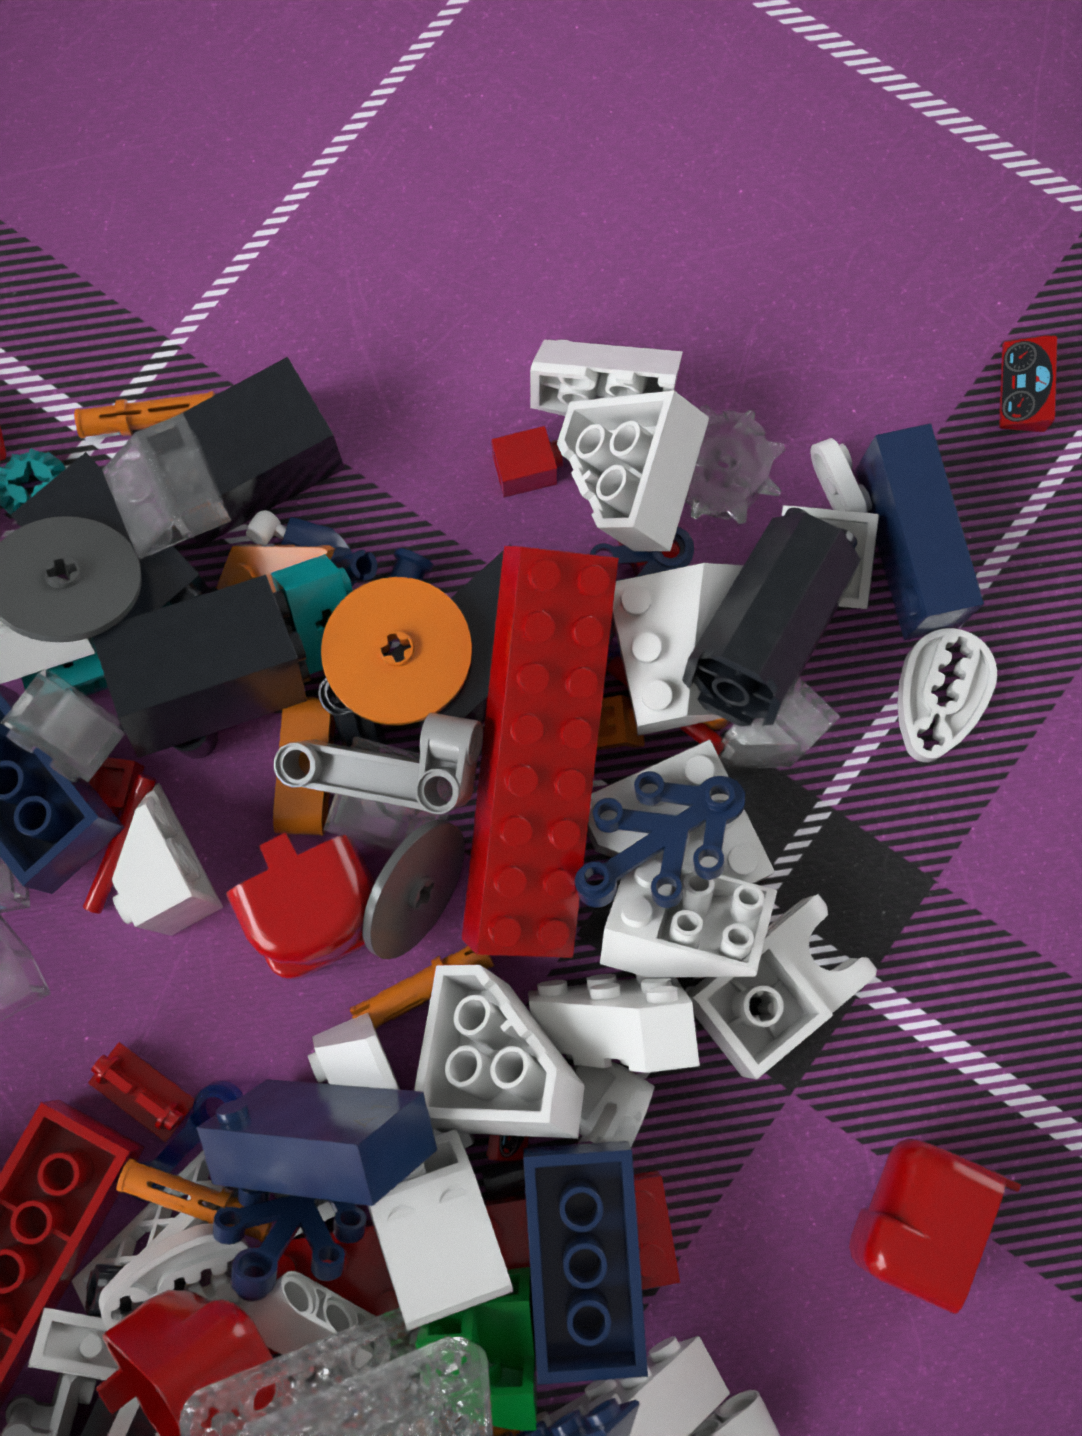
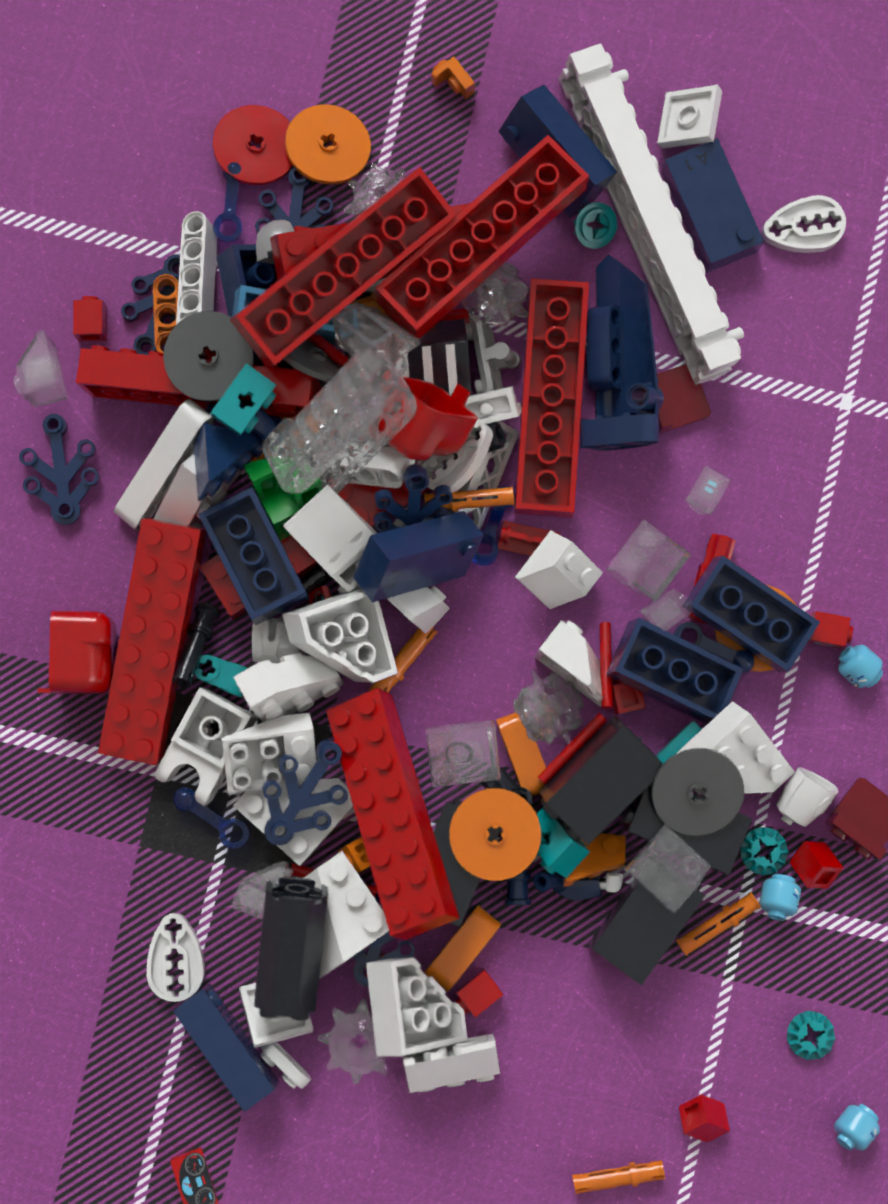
camera: 155 degrees right, 5 degrees up
(40, 411) = (780, 897): none -> medium azure head
(63, 726) = (659, 713): clear slope -> none
(98, 85) = (857, 1127): none -> medium azure head
(111, 236) = (798, 1029): none -> teal gear
(114, 1018) = (558, 572): none -> white slope
(226, 736) = (572, 748): none -> red bar
(231, 811) = (549, 708): none -> clear brick
(295, 179) = (704, 1118): none -> red panel
(305, 905) = (479, 674): red piece -> none
(413, 889) = (428, 708): dark grey piece -> none
(442, 156) = (621, 1176): none -> orange pin
(447, 750) = (441, 790): light grey piece -> none
(533, 522) = (462, 948): none -> orange beam
(706, 1084) = (223, 674): none -> teal piece
(721, 1168) = (199, 633): none -> black pin
(799, 1198) = (152, 641): none -> red brick
(843, 915) = (185, 800): none -> clear blue piece

